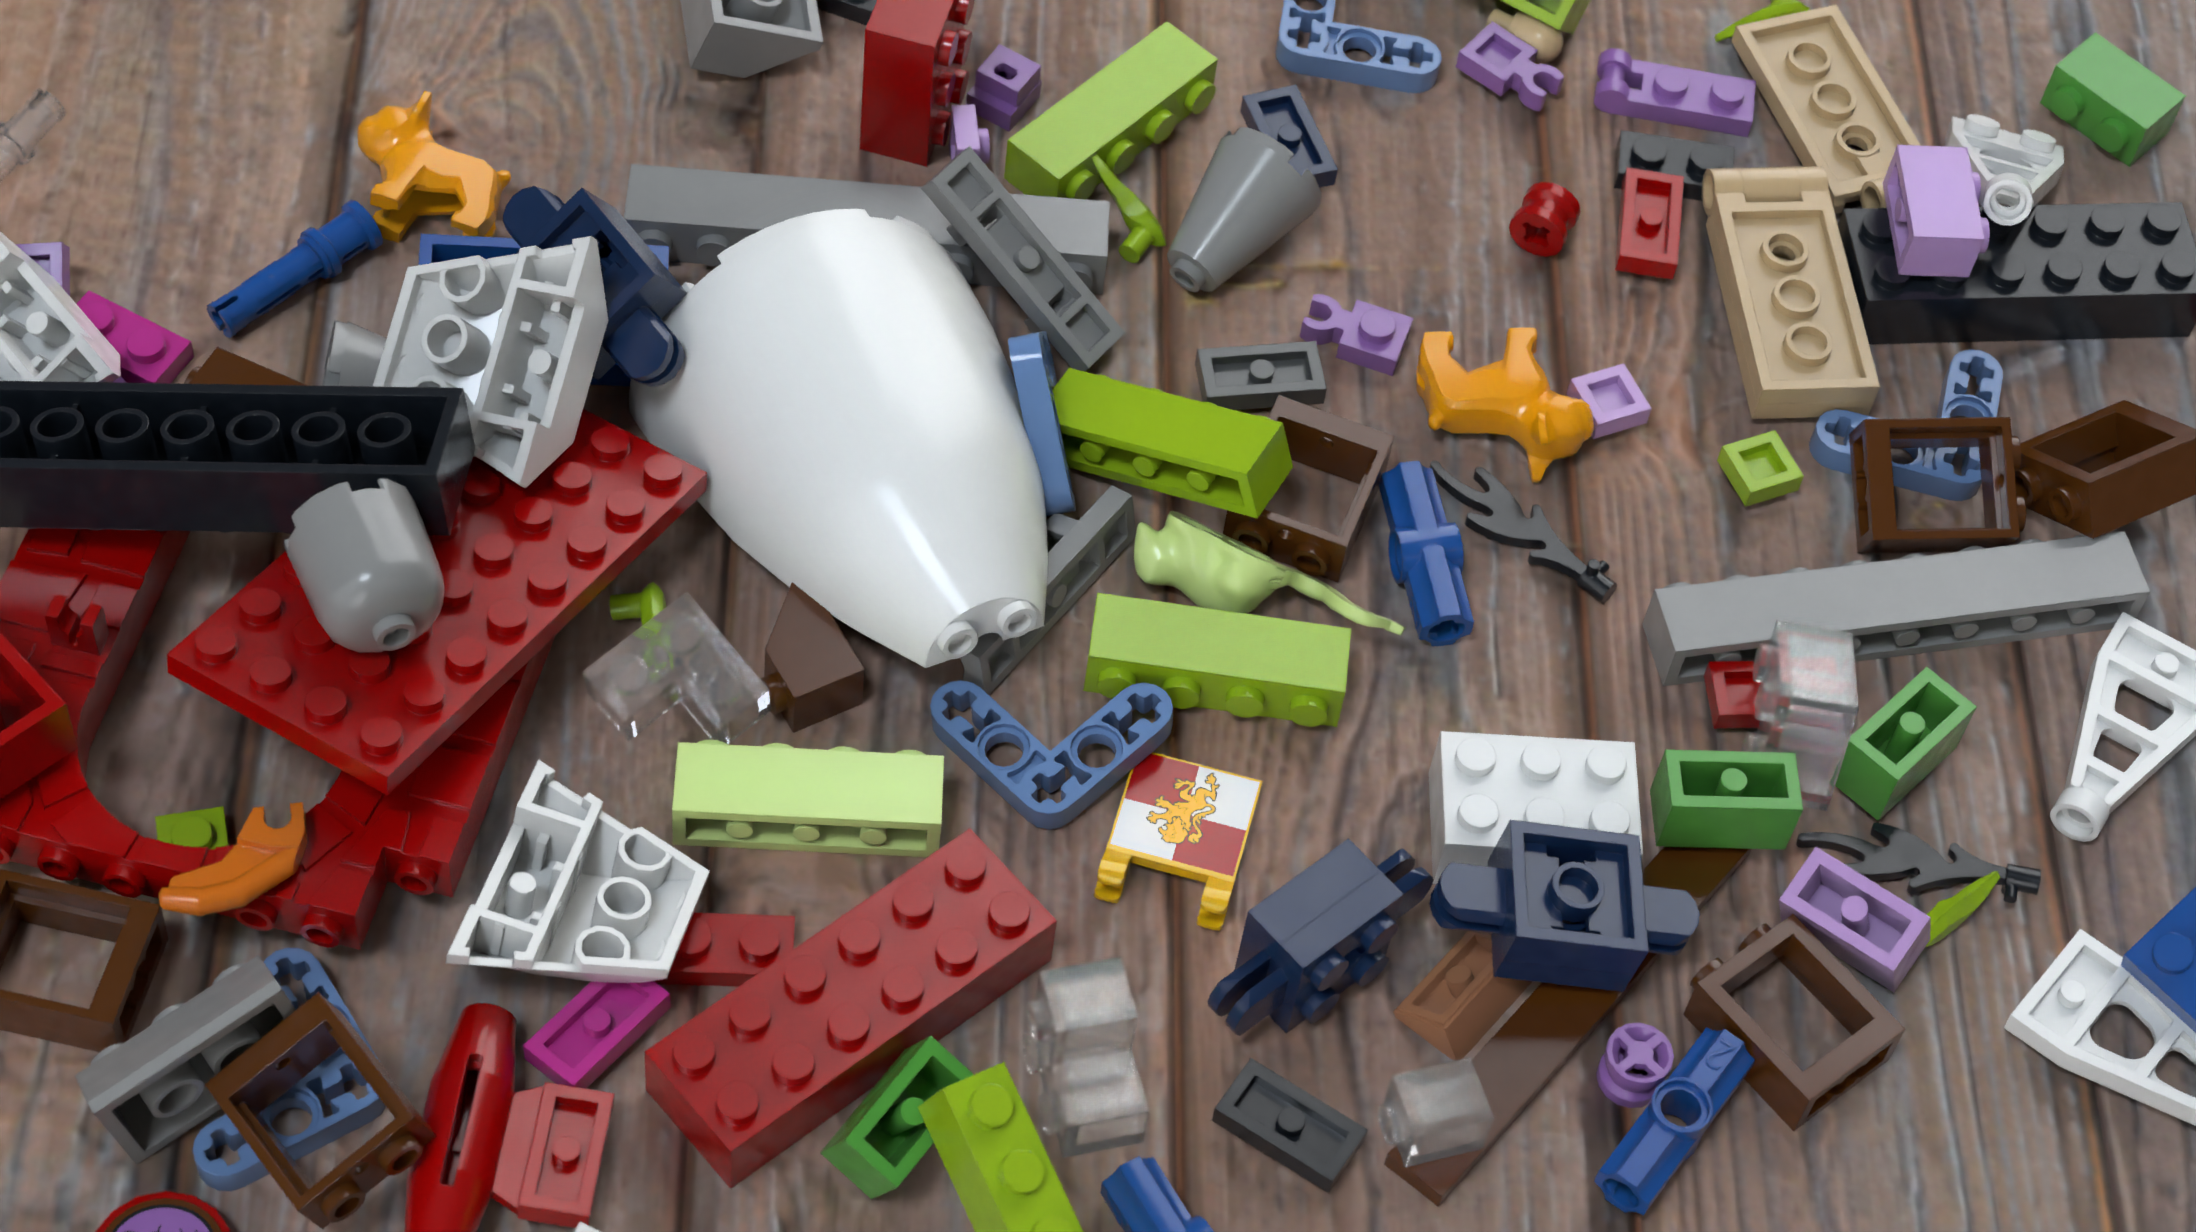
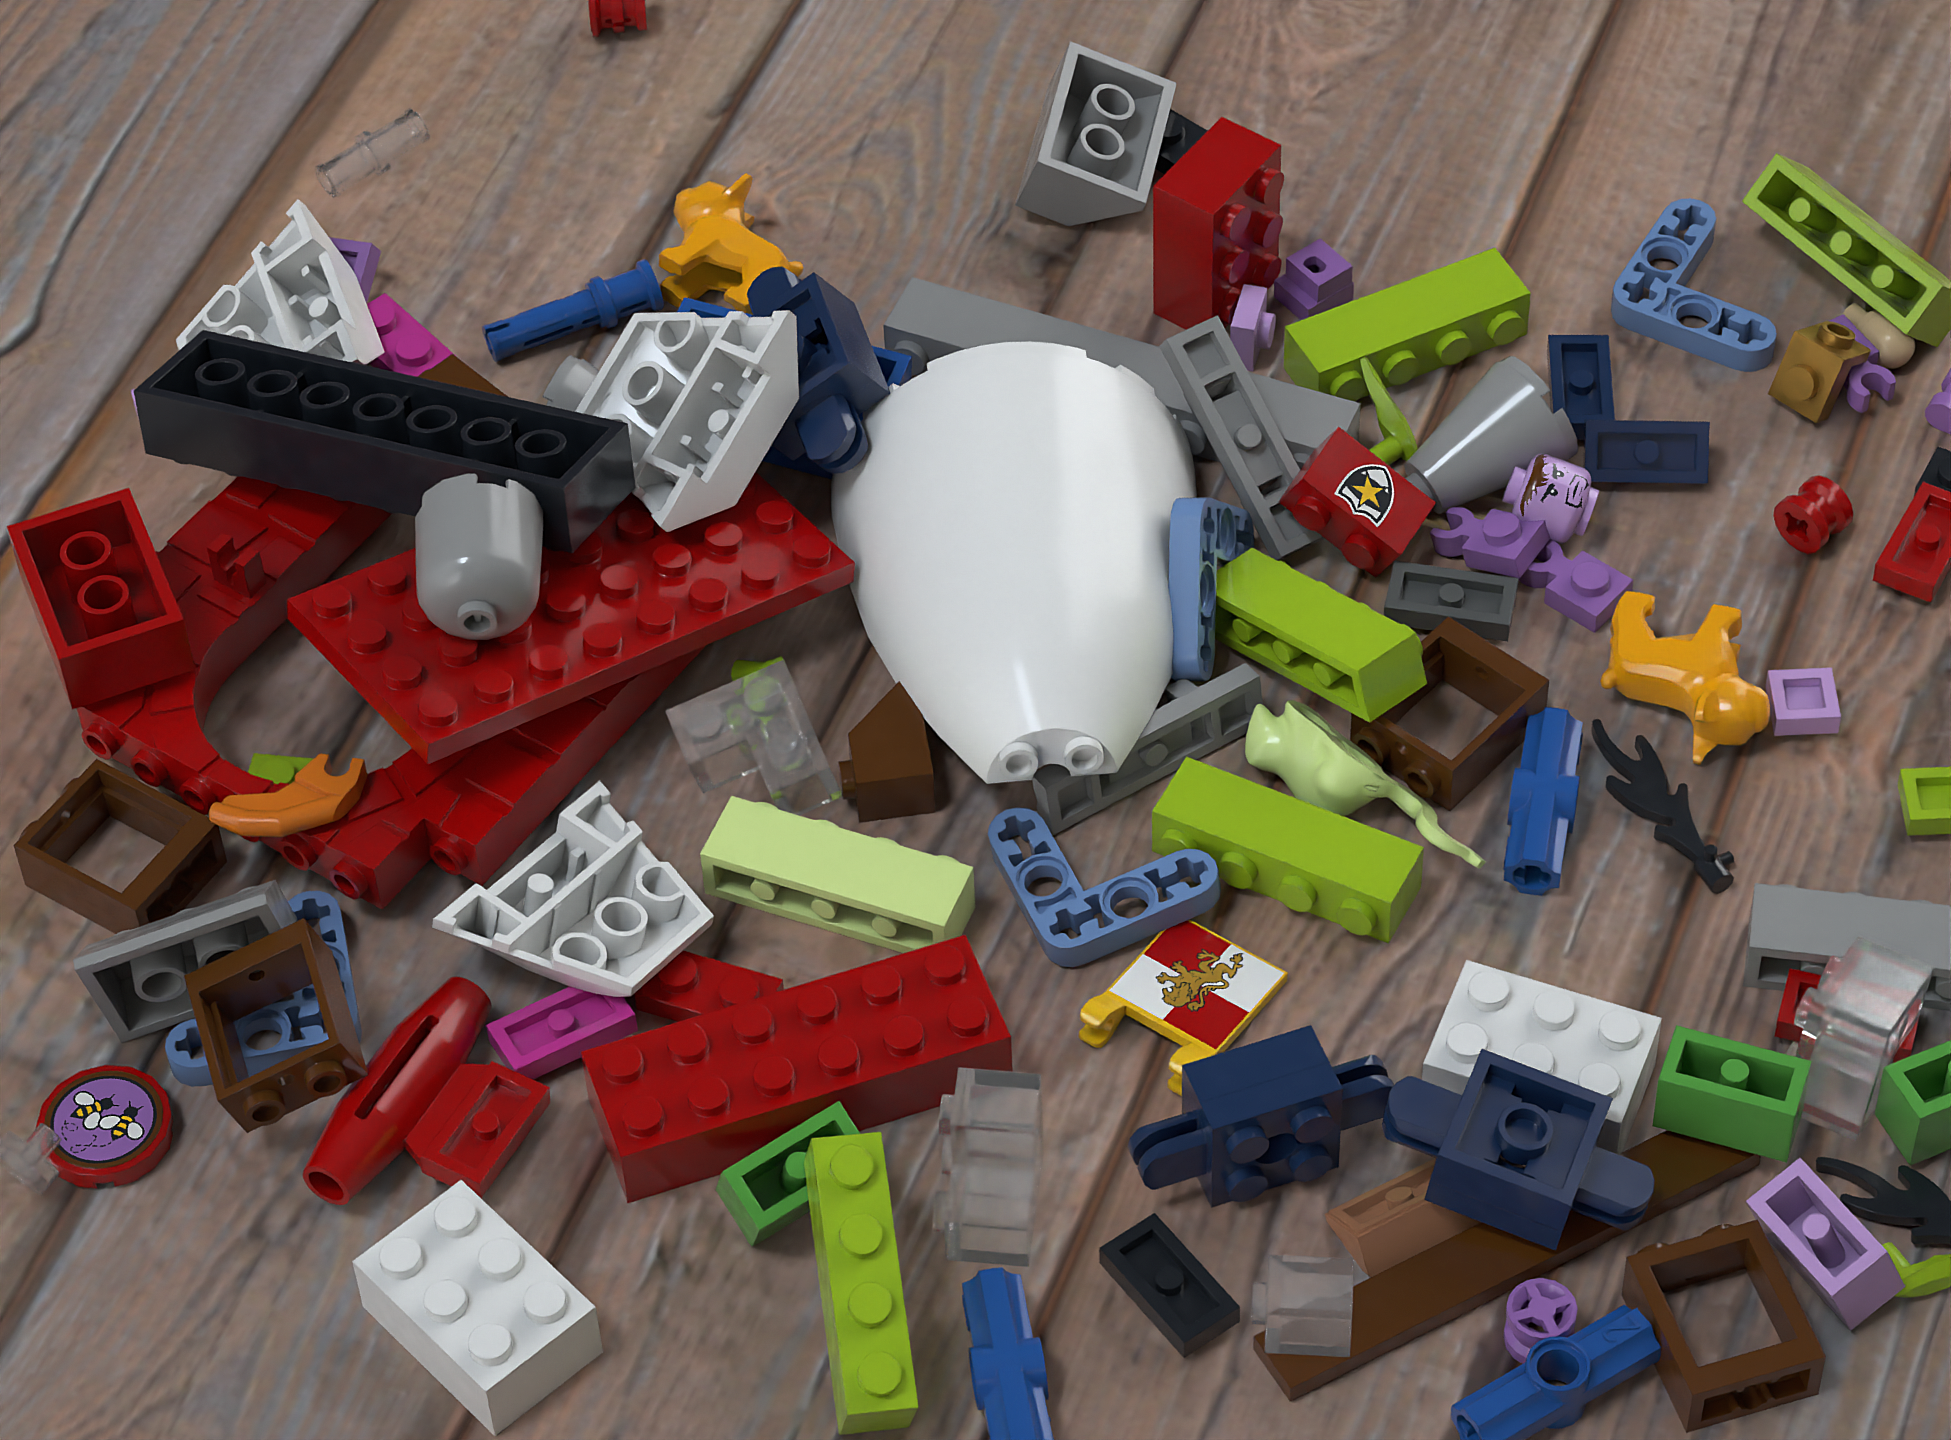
camera: 30 degrees right, 5 degrees down
(1146, 300) = (1356, 502): none -> red brick
(1278, 311) = (1493, 544): none -> medium lavender plate
(1314, 256) = (1552, 493): none -> lavender head
(1375, 190) = (1646, 451): none -> dark blue plate
(1492, 78) = (1817, 368): none -> pearl gold bracket

